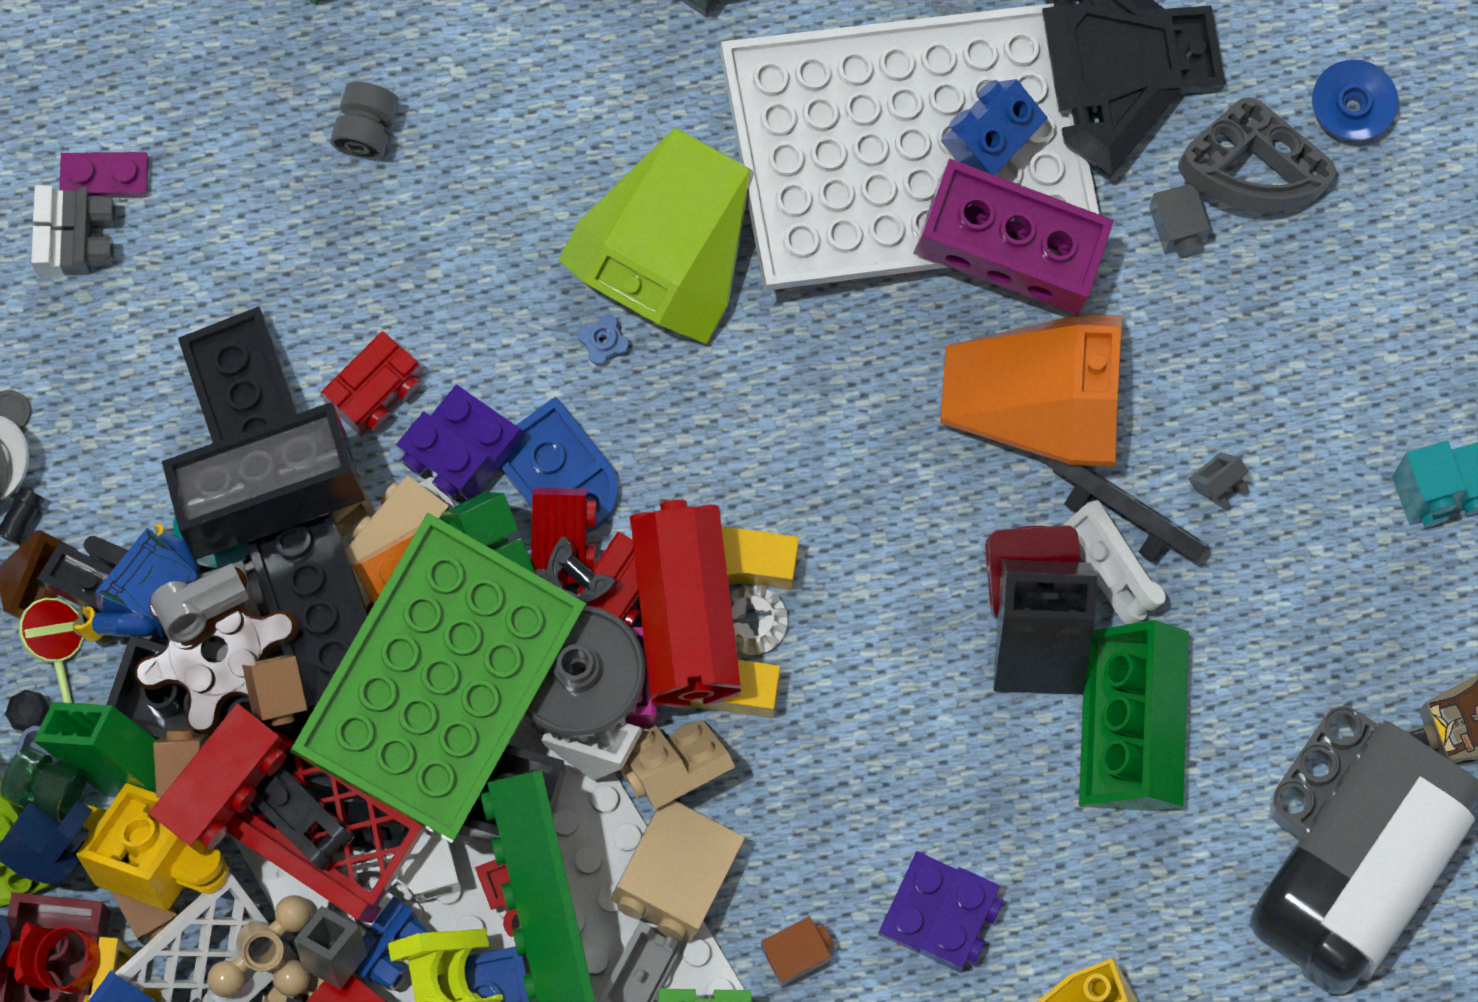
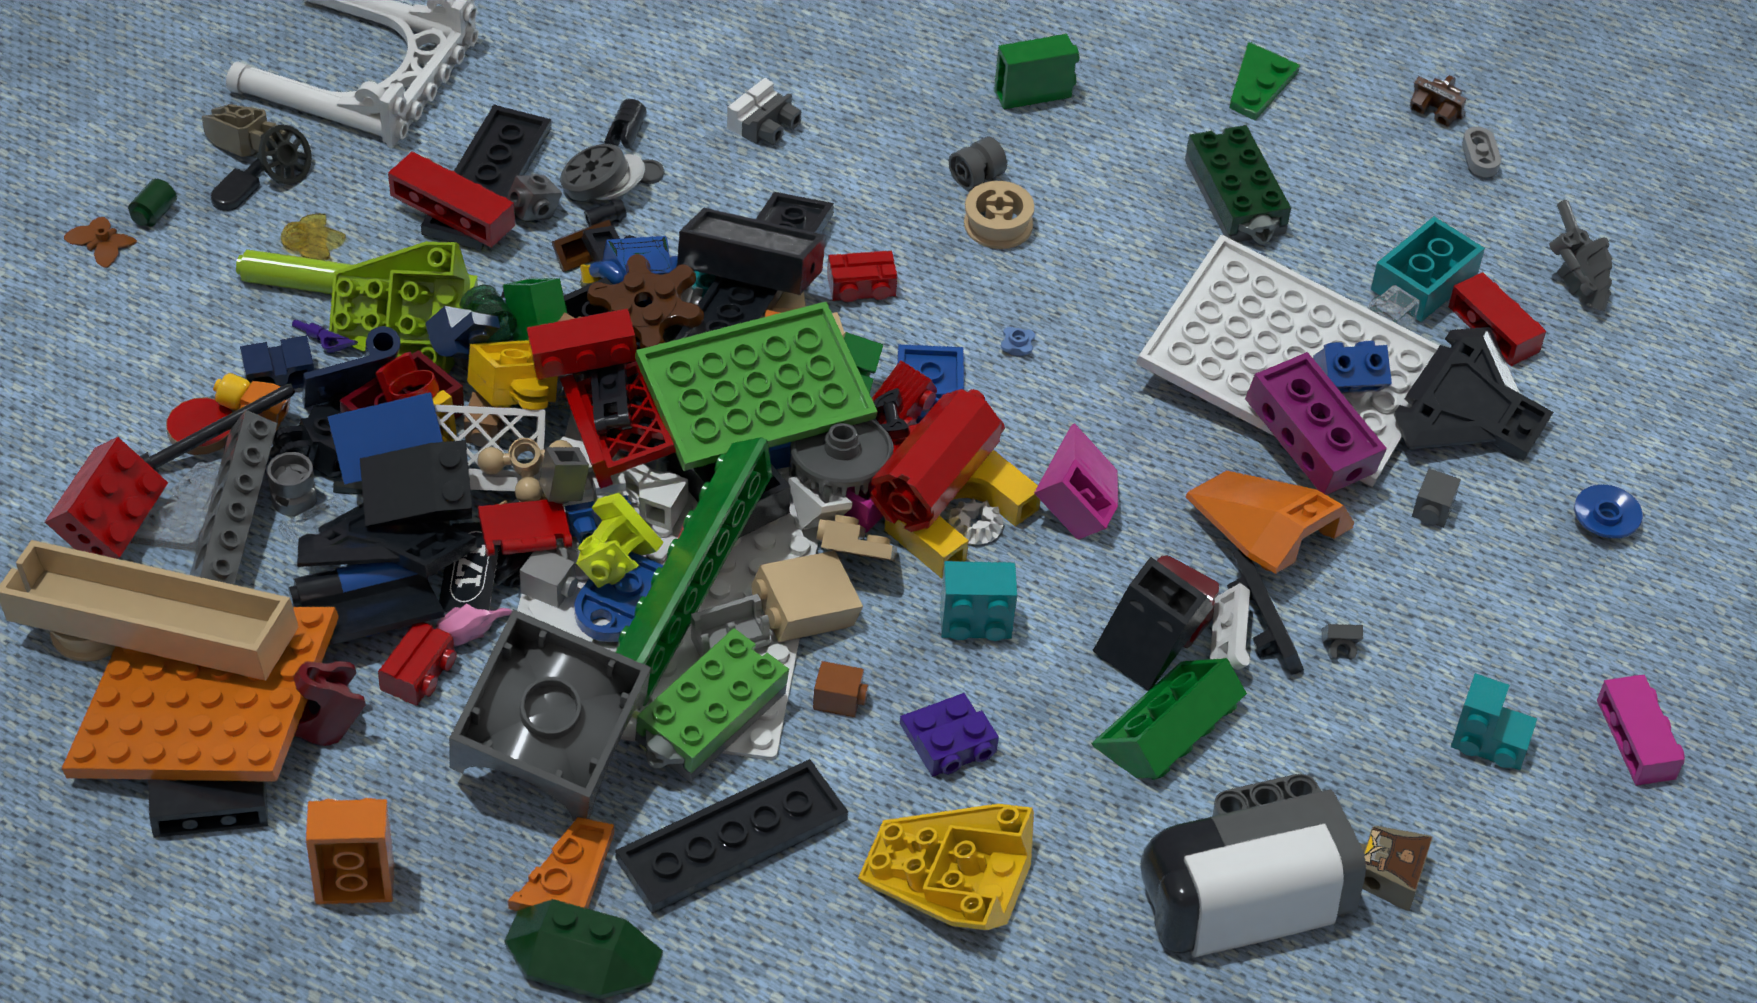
camera: 35 degrees right, 25 degrees down
(50, 637) = (566, 266): red piece -> none
(106, 173) = (814, 108): magenta plate -> none
(186, 607) = (661, 262): light grey piece -> none
(275, 689) = (658, 325): medium nougat brick -> none
(434, 152) = (999, 201): none -> tan wheel
(459, 444) = (893, 327): dark purple plate -> none
(667, 236) = (1104, 309): lime wedge -> none
(831, 495) = (1080, 485): none -> dark pink slope
(852, 737) = (978, 600): none -> teal brick
(1258, 137) = (1537, 526): dark grey beam -> none

